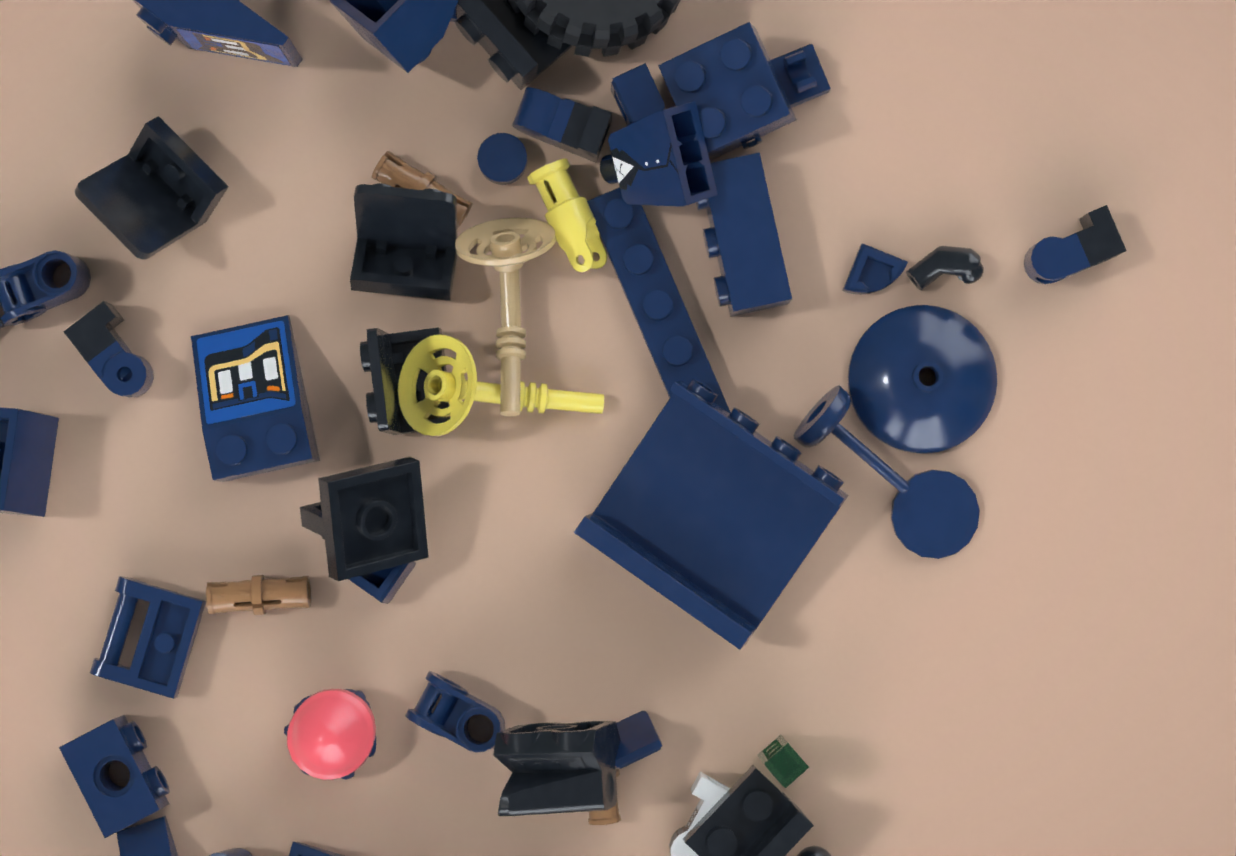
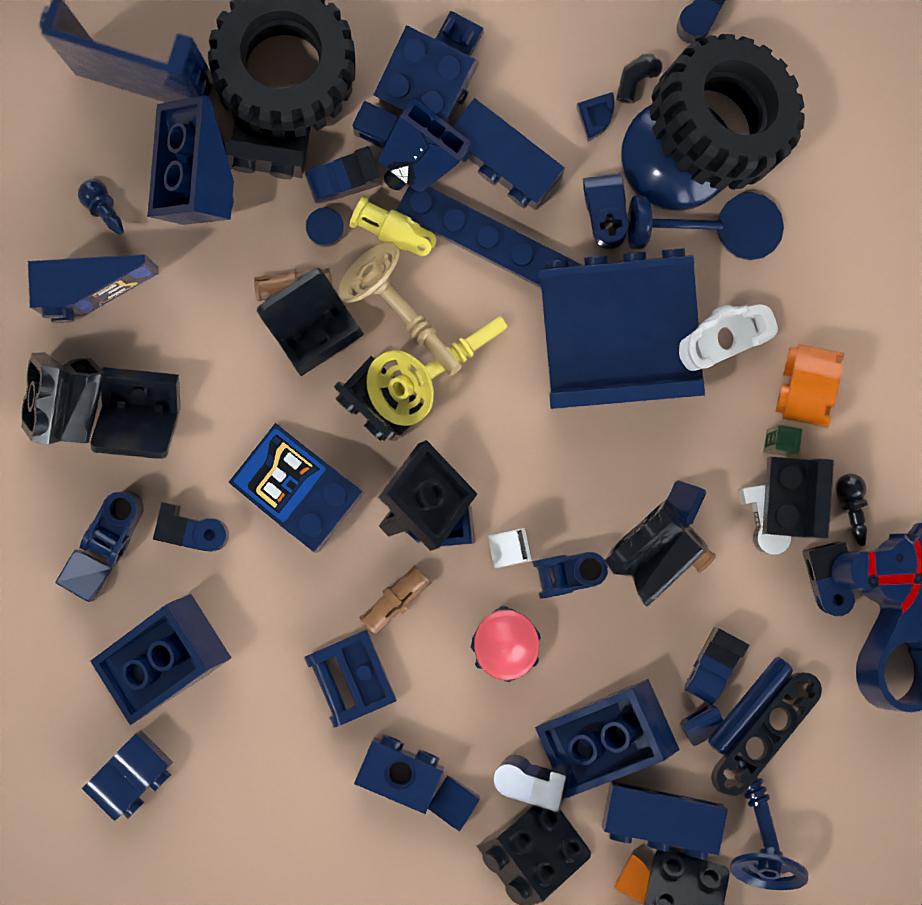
camera: 30 degrees left, 0 degrees up
(89, 114) = (60, 399): none -> black piece
(415, 639) = (509, 548): none -> white leg
(806, 369) = (606, 203): none -> dark blue piece
(846, 615) = (749, 327): none -> white piece
(859, 728) = (812, 385): none -> orange brick
(1057, 369) = (755, 84): none -> black tyre

